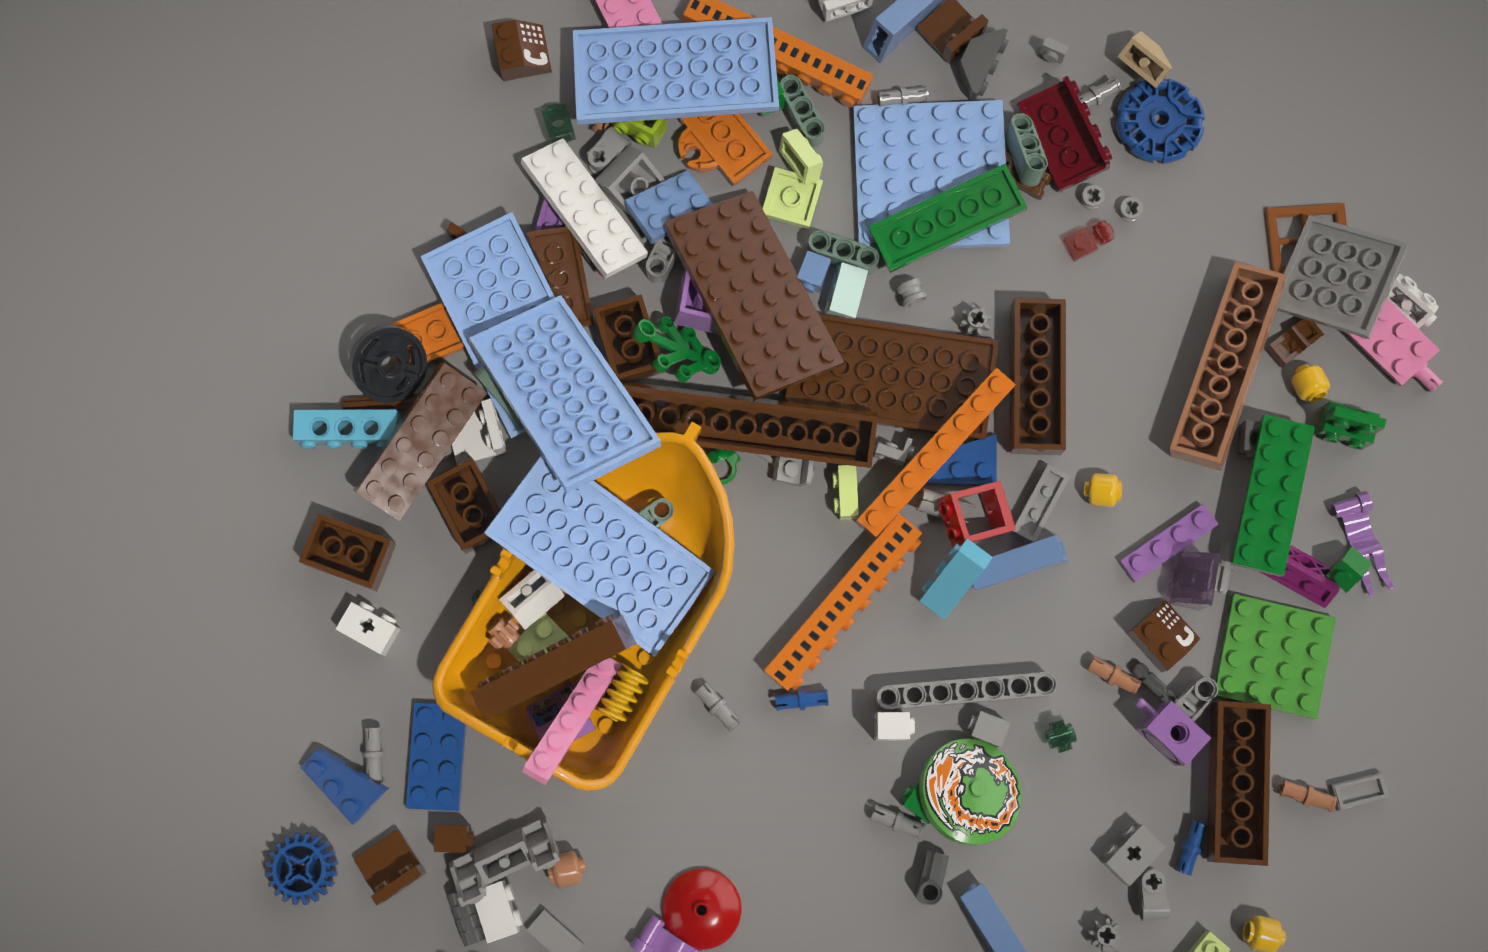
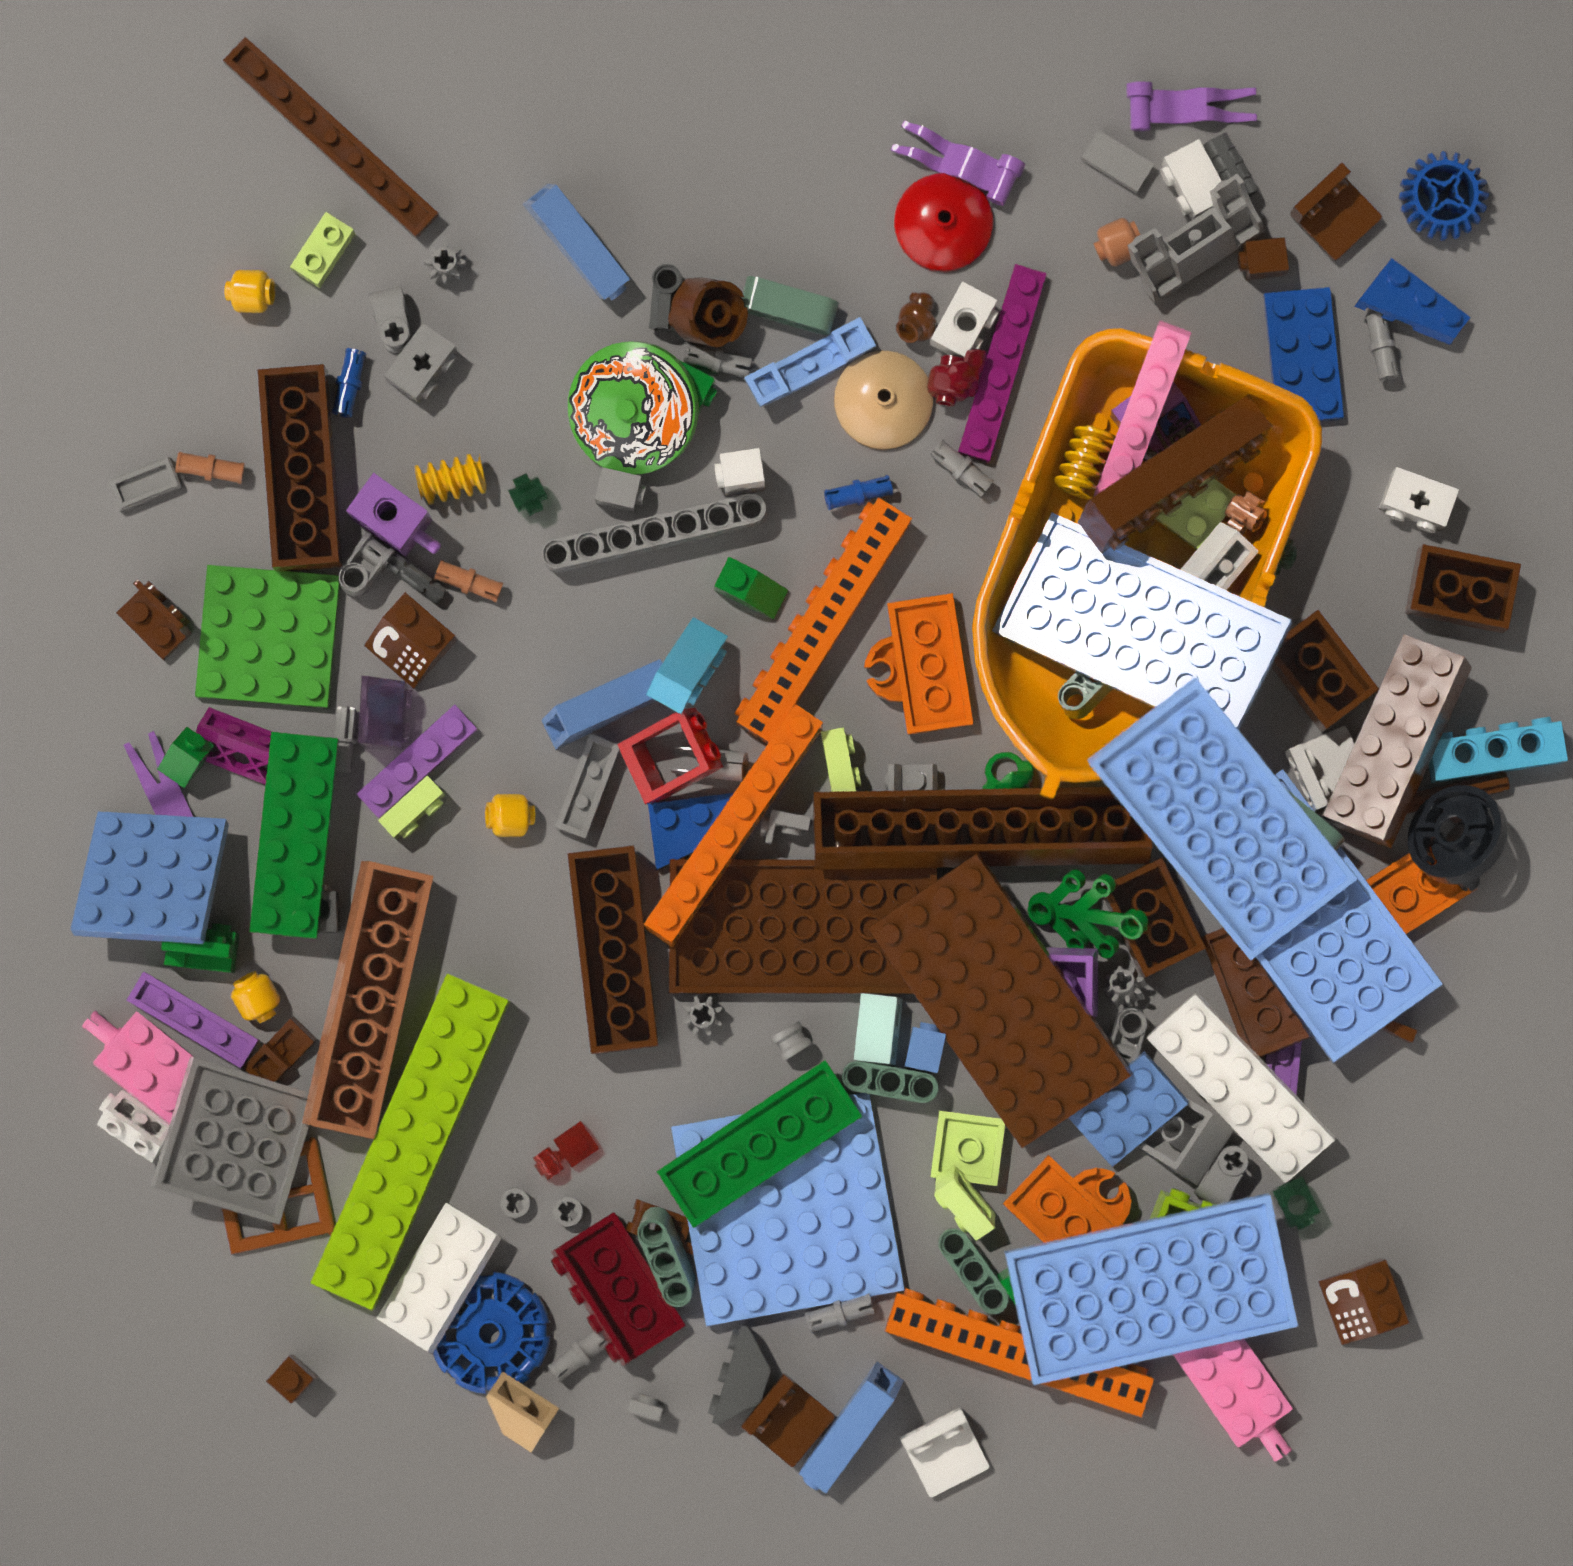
camera: 170 degrees right, 5 degrees up
(662, 299) = (1118, 980): none -> light grey gear
(673, 787) = (1002, 363): none -> magenta plate
(695, 838) = (966, 303): none -> white brick
(711, 778) = (956, 377): none -> dark red head
(736, 831) = (916, 319): none -> reddish brown animal
(750, 771) = (878, 422): none -> tan dish
(770, 558) = (924, 665): none -> orange plate
(825, 808) = (810, 363): none -> light blue slope
(835, 858) = (789, 305): none -> sand green beam
(896, 636) = (750, 588): none -> green slope
(901, 859) = (708, 311): none -> reddish brown brick
(1119, 756) = (451, 479): none -> yellow piece
(1185, 500) = (403, 815): none -> yellowish green piece
(1193, 161) = (439, 1278): none -> white plate
(1204, 262) = (410, 1142): none -> lime brick
(1309, 106) = (291, 1378): none -> reddish brown brick
(1359, 374) = (192, 1020): none -> medium lavender plate
(1361, 681) = (153, 622): none -> reddish brown bracket
(1386, 478) = (150, 877): none -> medium blue plate

